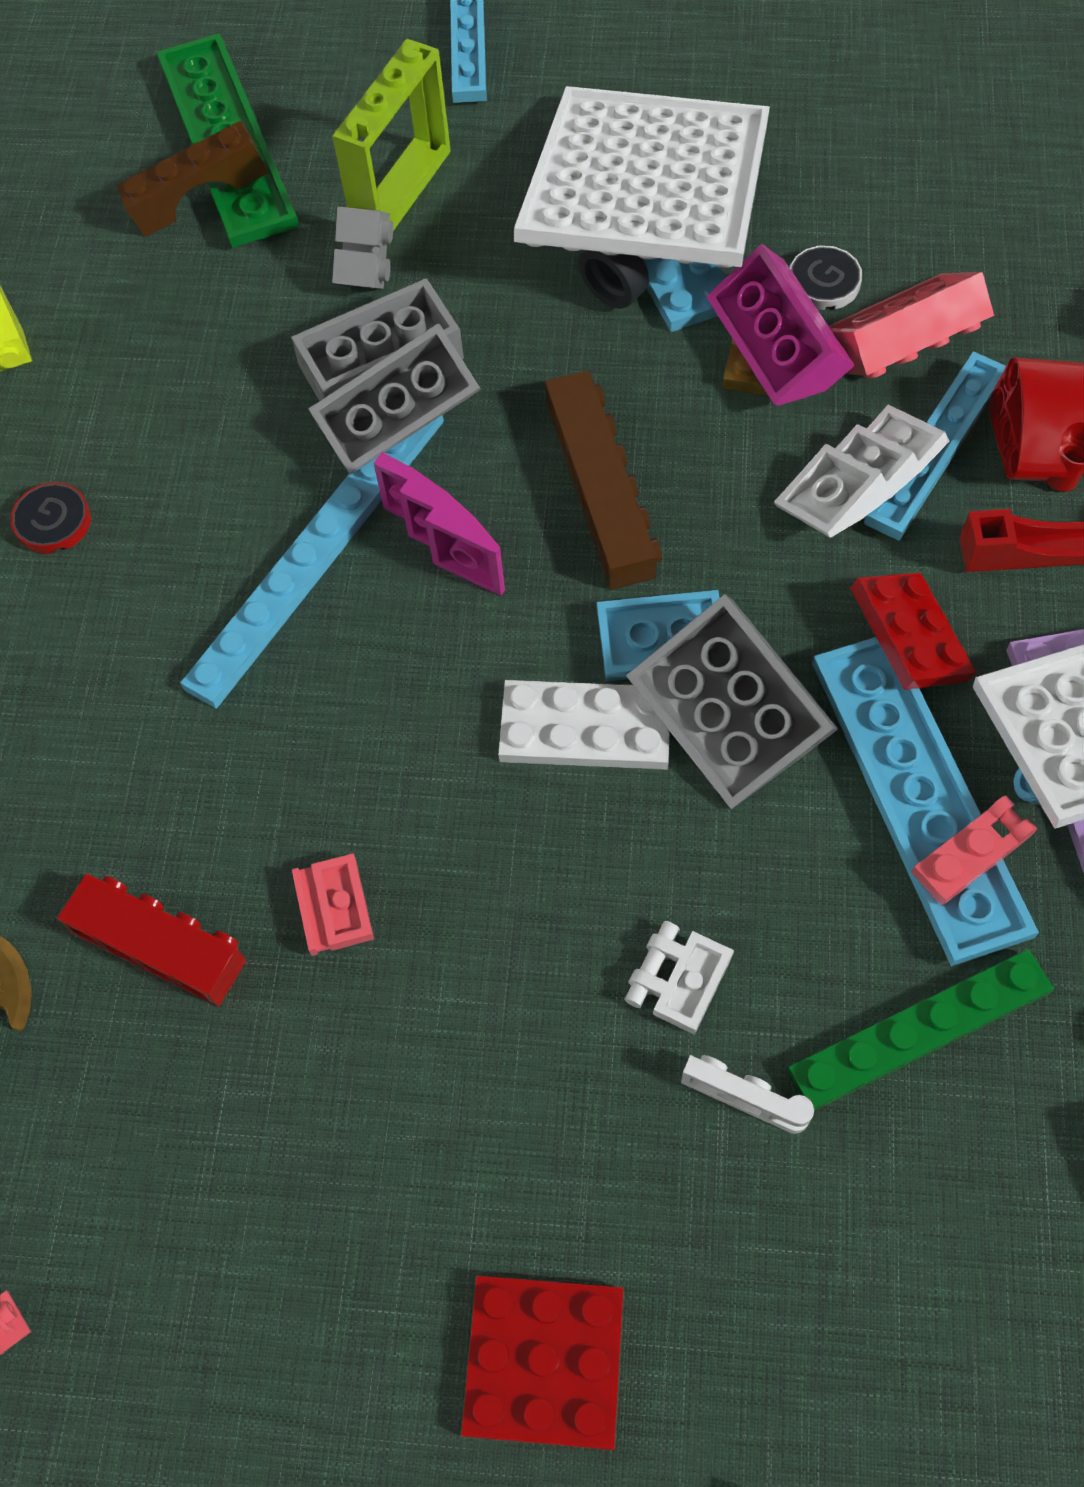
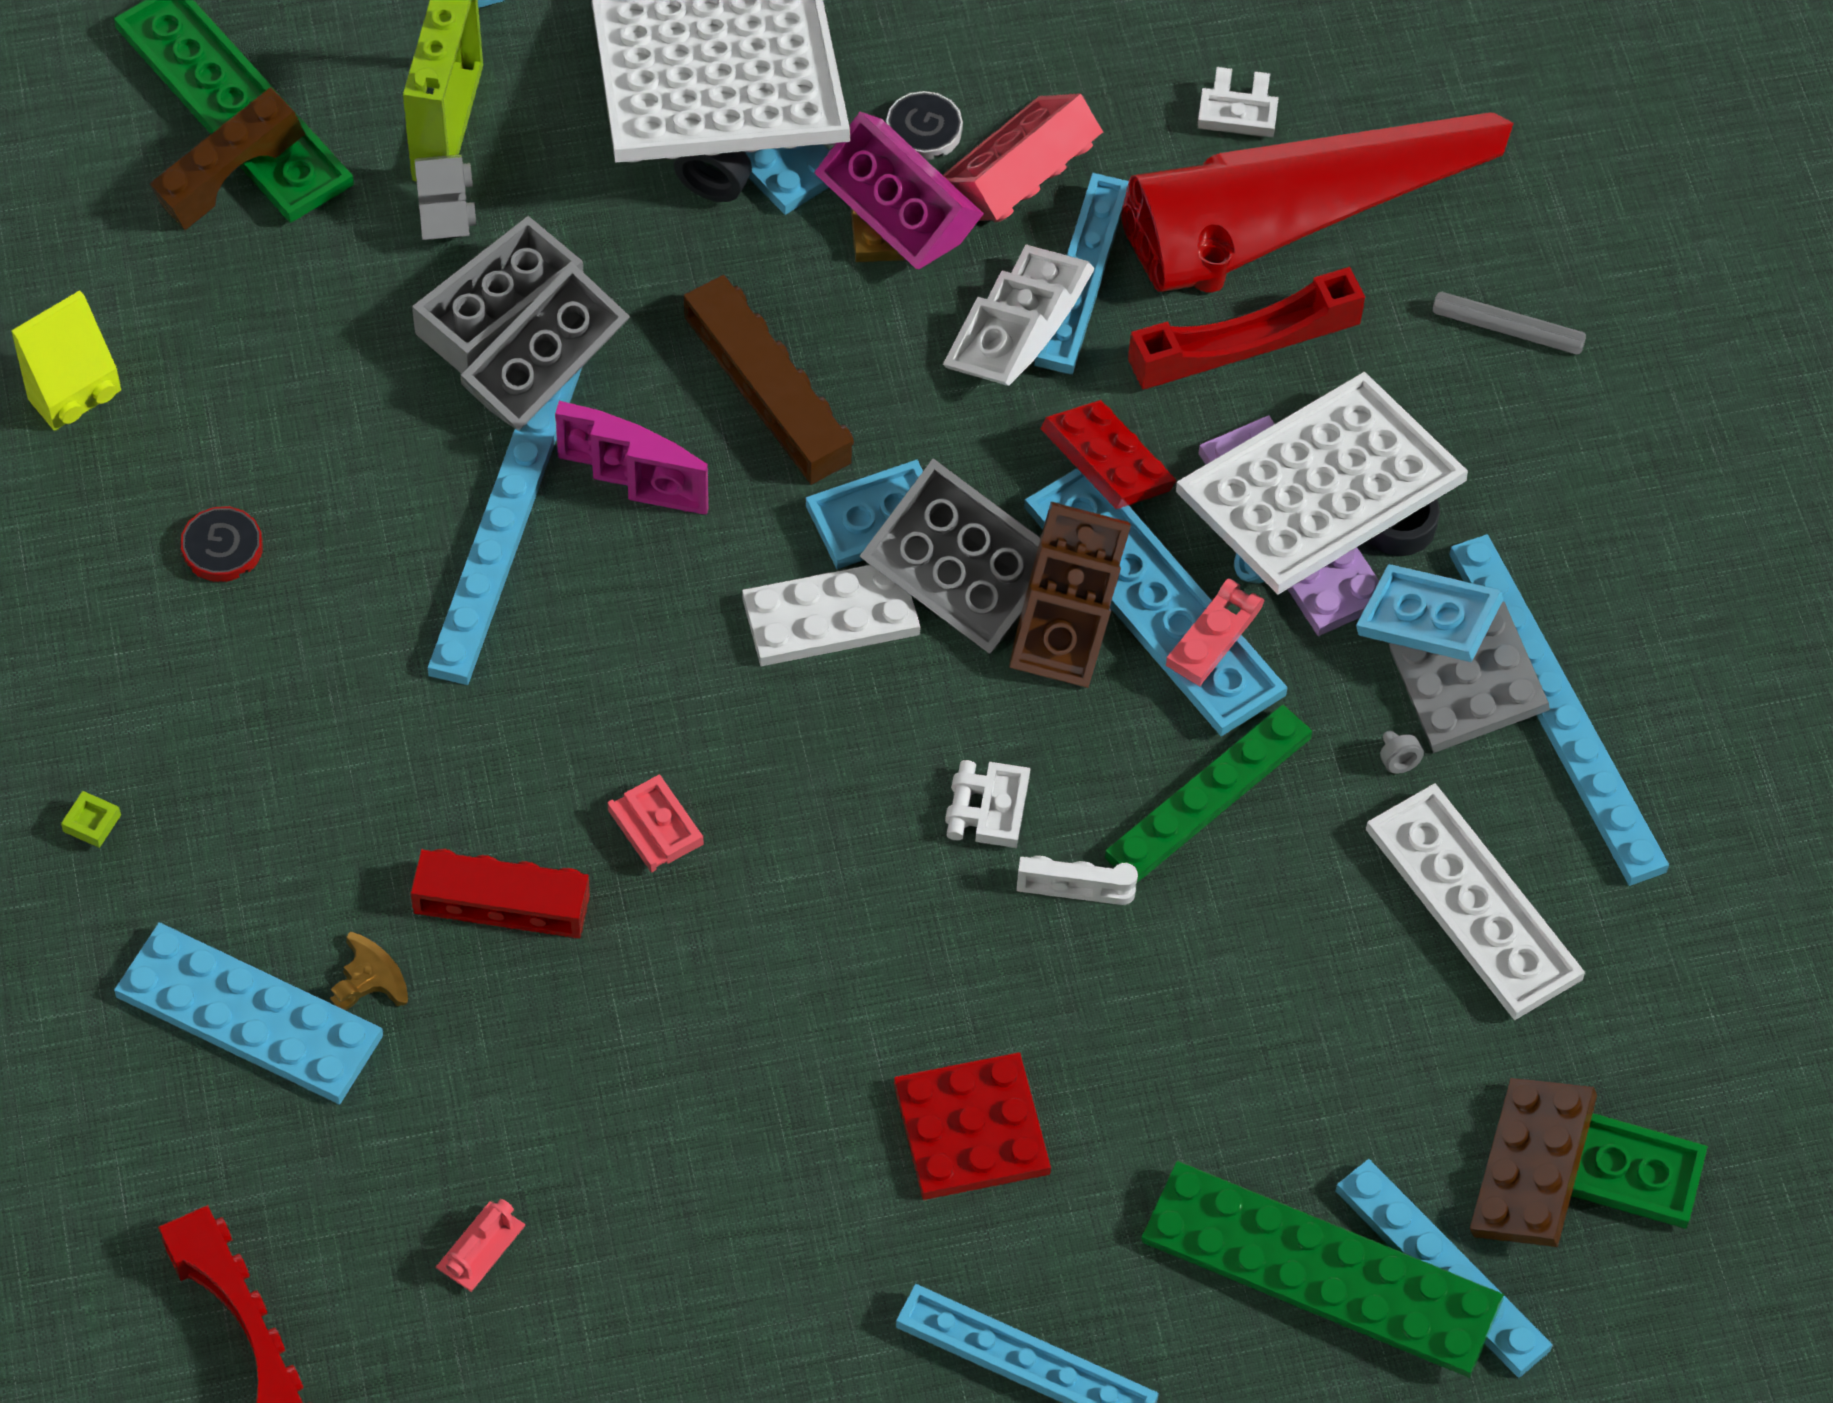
camera: 25 degrees left, 5 degrees down
(829, 771) = (1069, 594): none -> reddish brown slope

